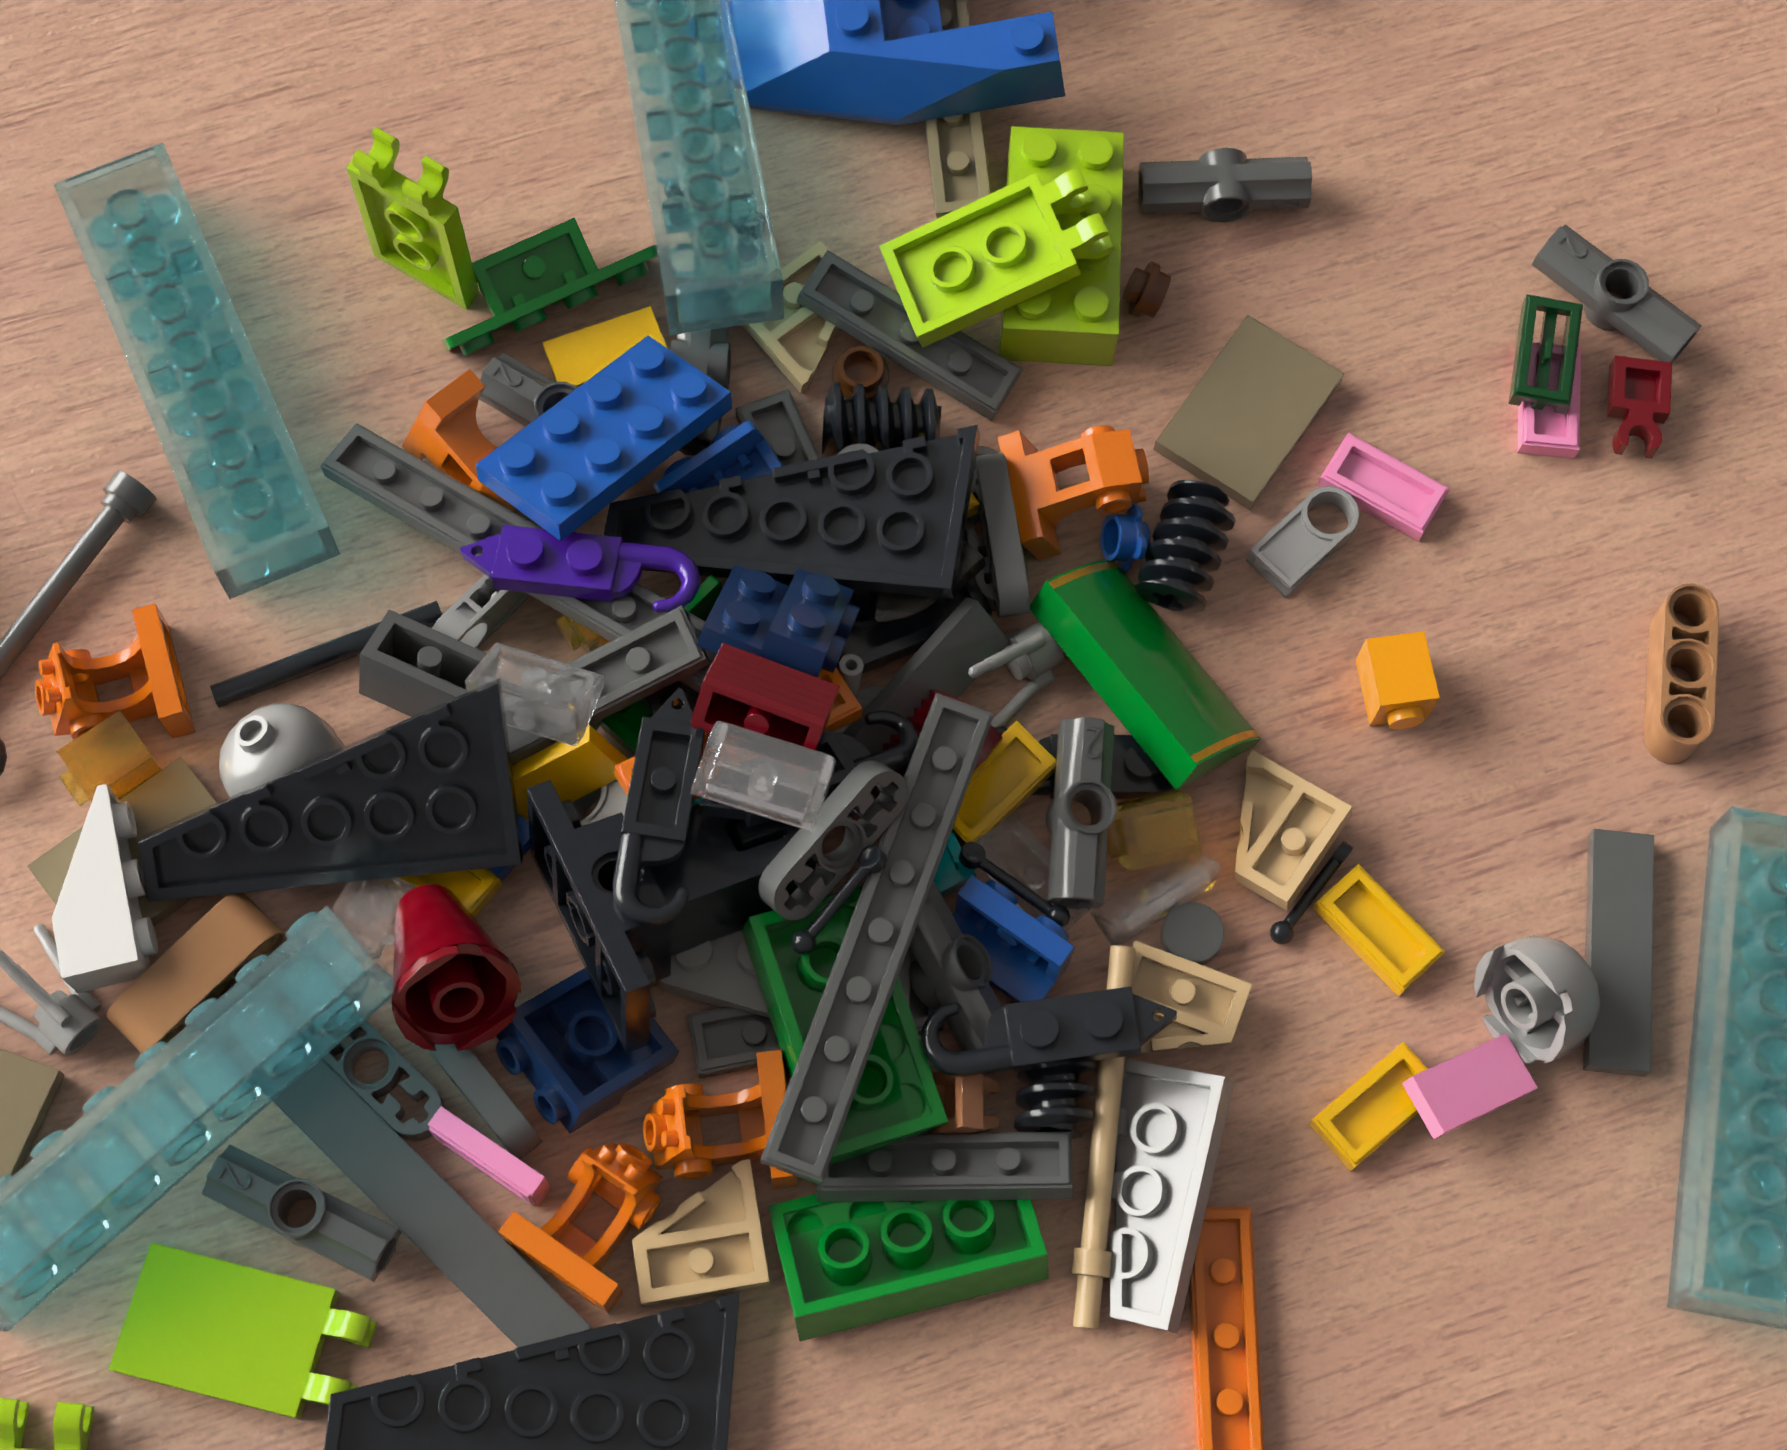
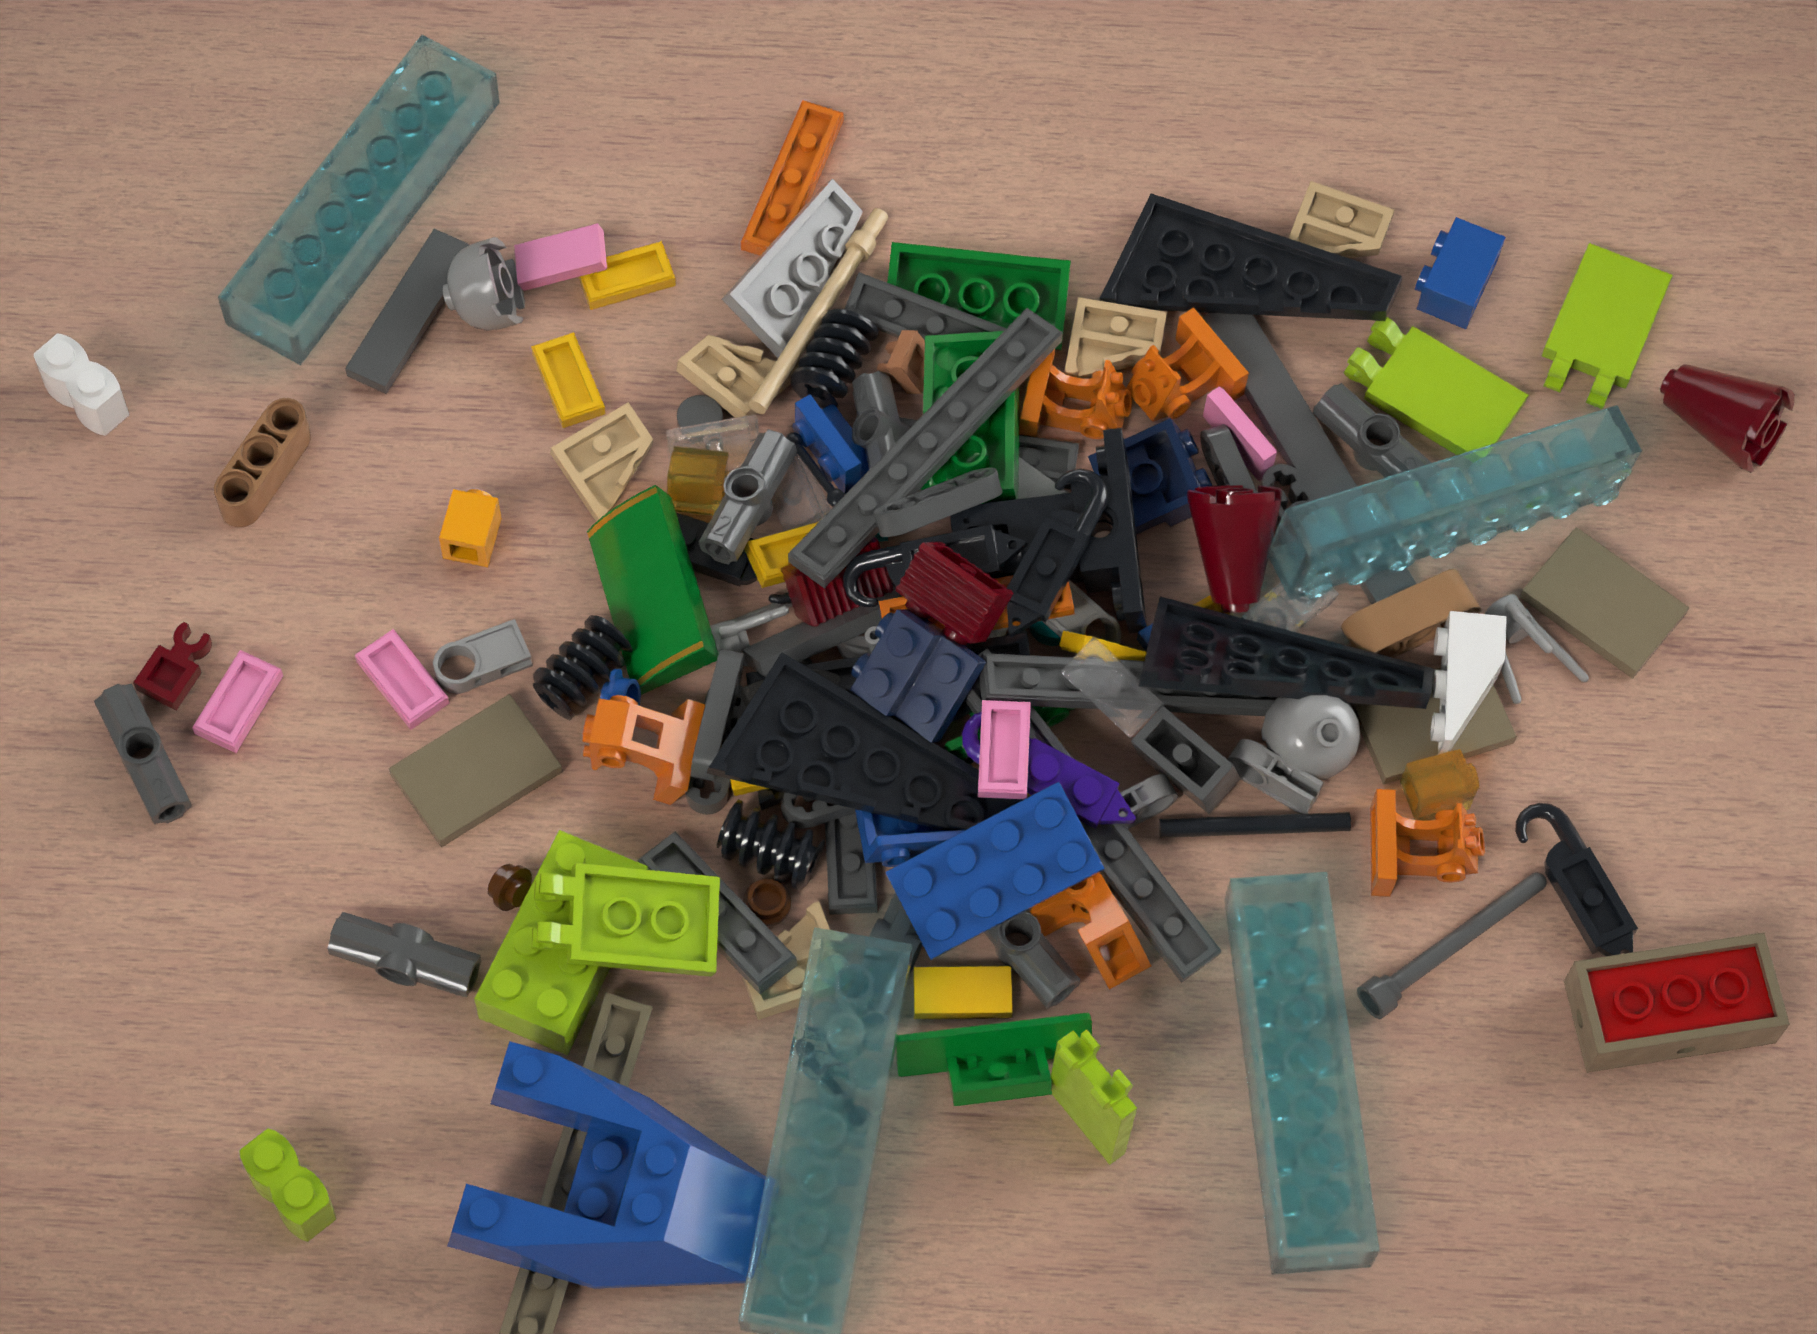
camera: 160 degrees left, 5 degrees down
(345, 711) = (1274, 777): none -> light grey piece
(639, 555) = (1004, 749): none -> bright pink tile
(764, 775) = (976, 537): clear slope -> none
(871, 860) = (917, 482): black hinge -> none
(1051, 1032) = (834, 354): black plate -> none
(1282, 931) = (636, 401): black hinge -> none
(1539, 394) = (203, 755): dark green tile -> none

